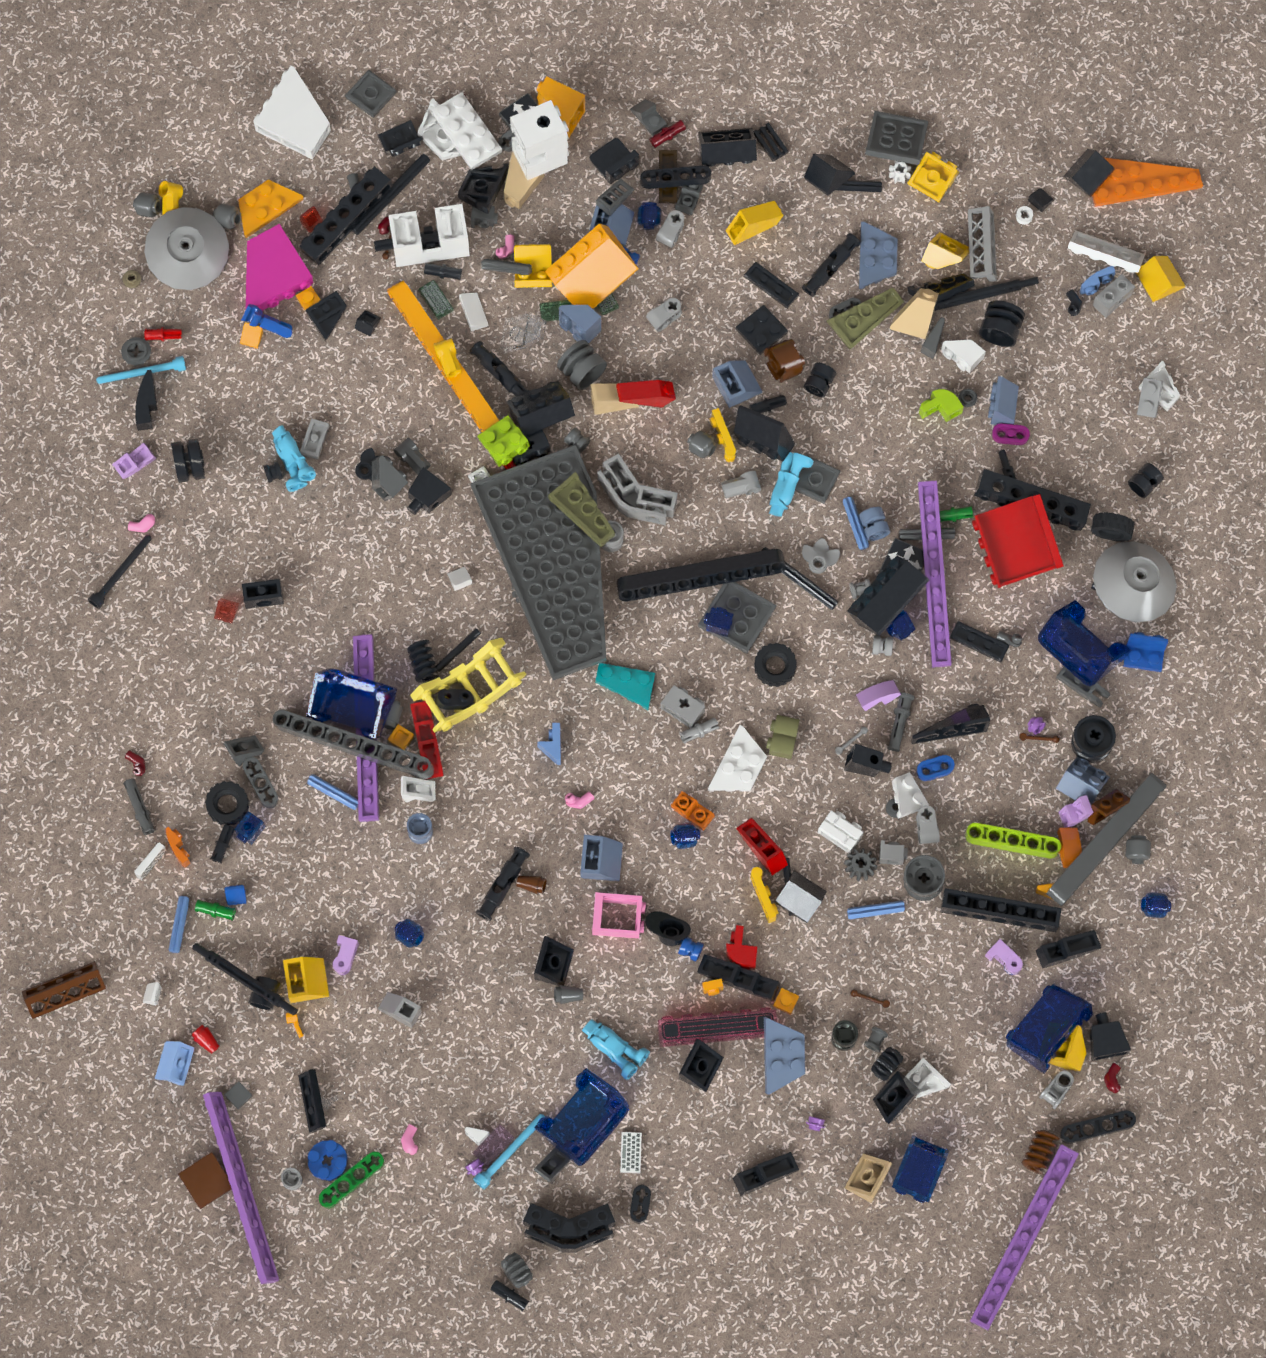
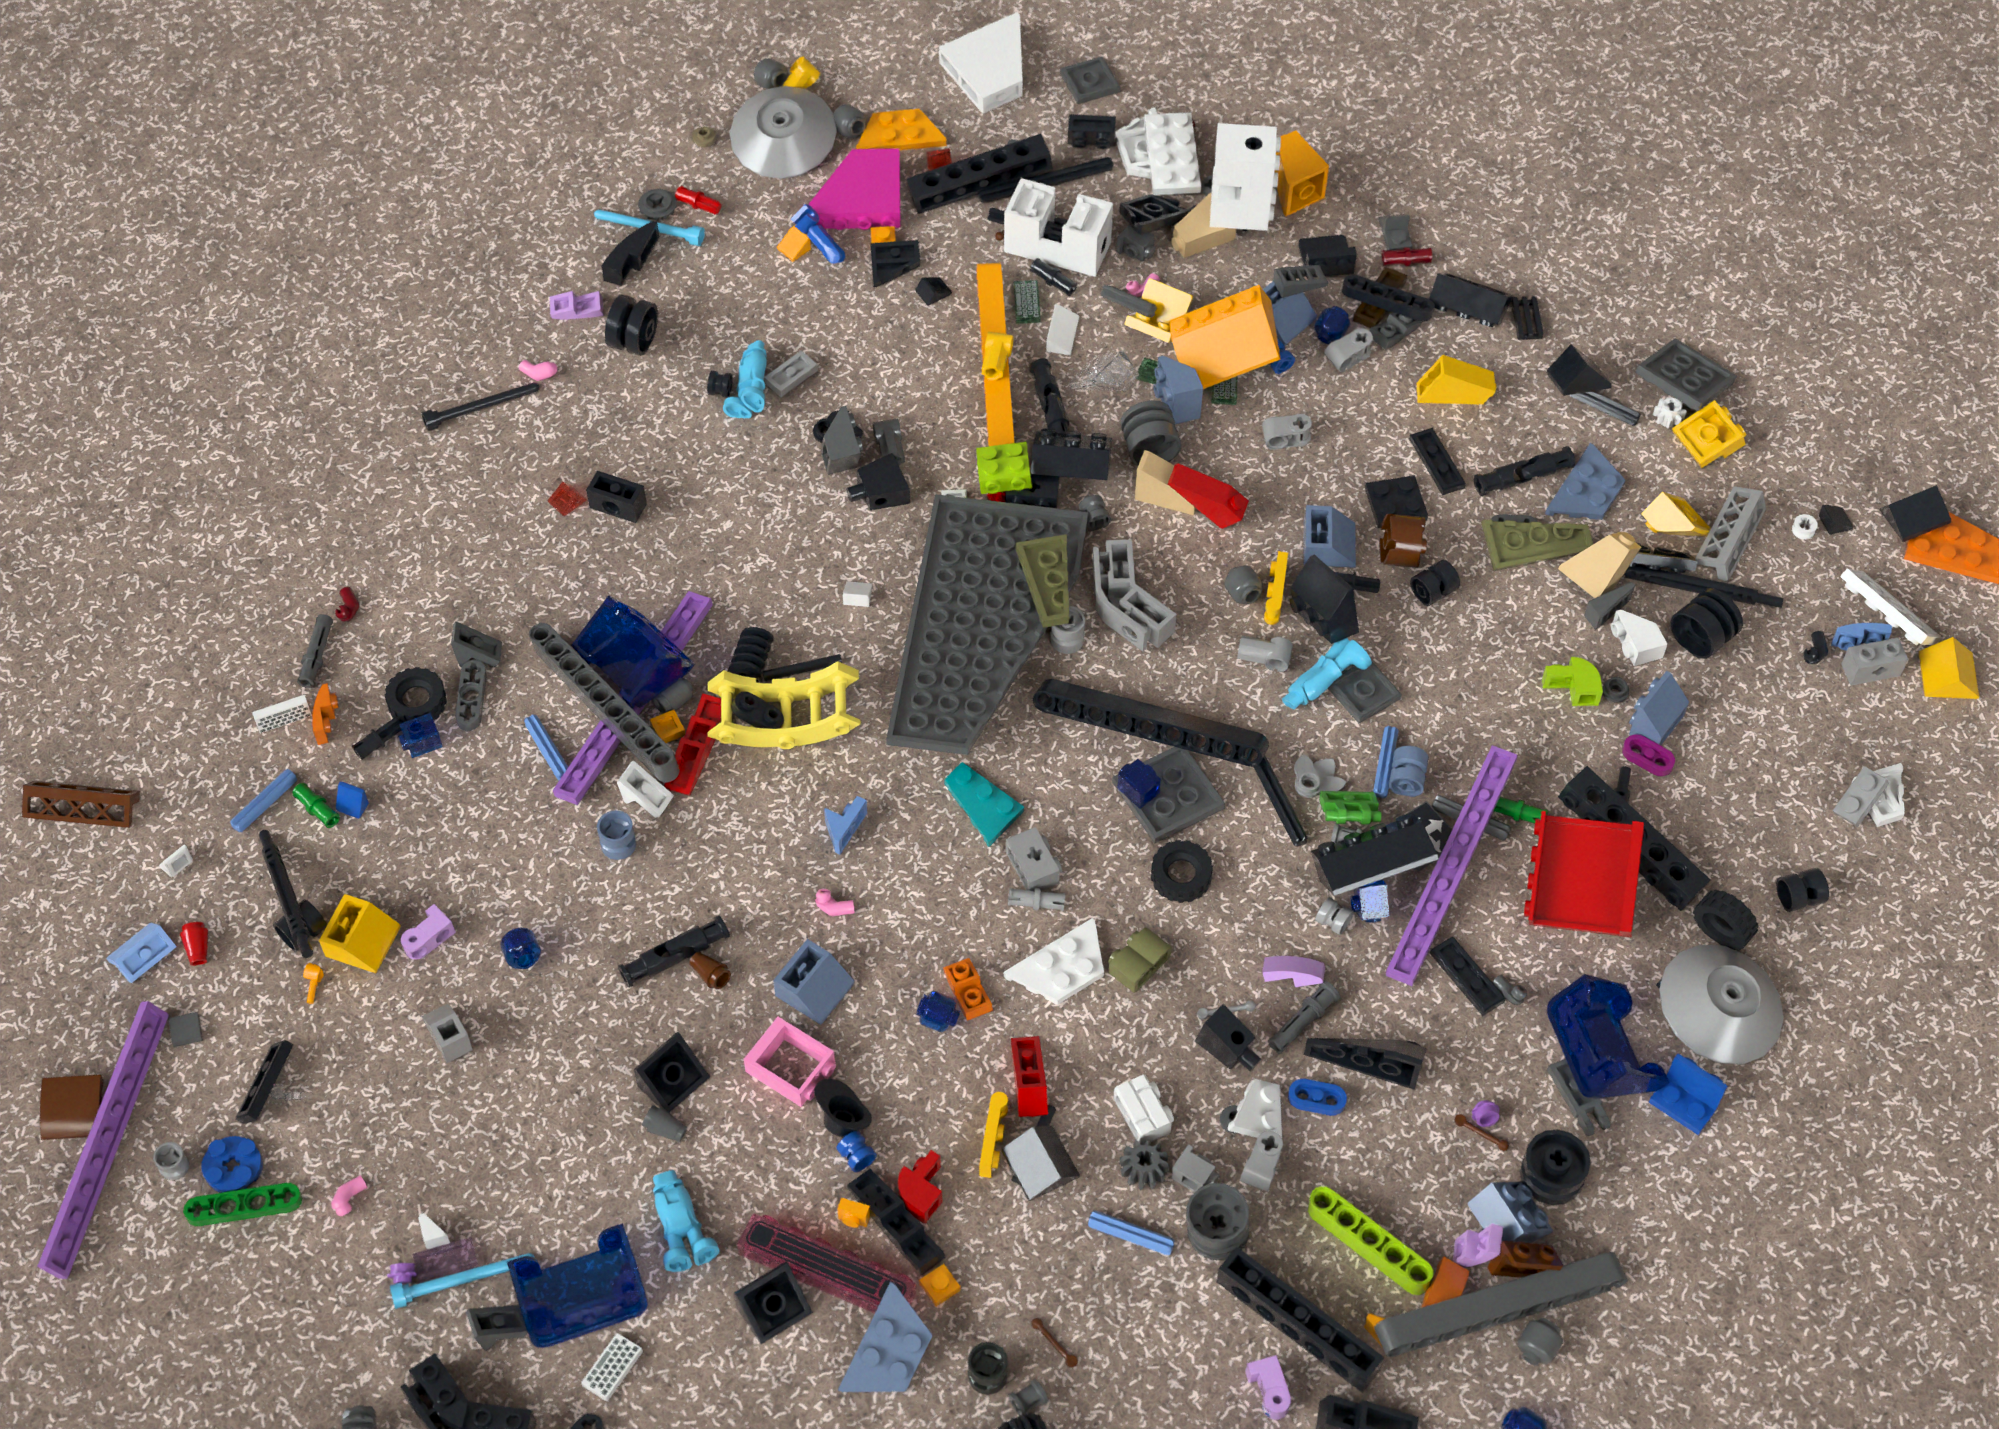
camera: 30 degrees right, 15 degrees down
(849, 564) = (1350, 807): none -> bright green plate

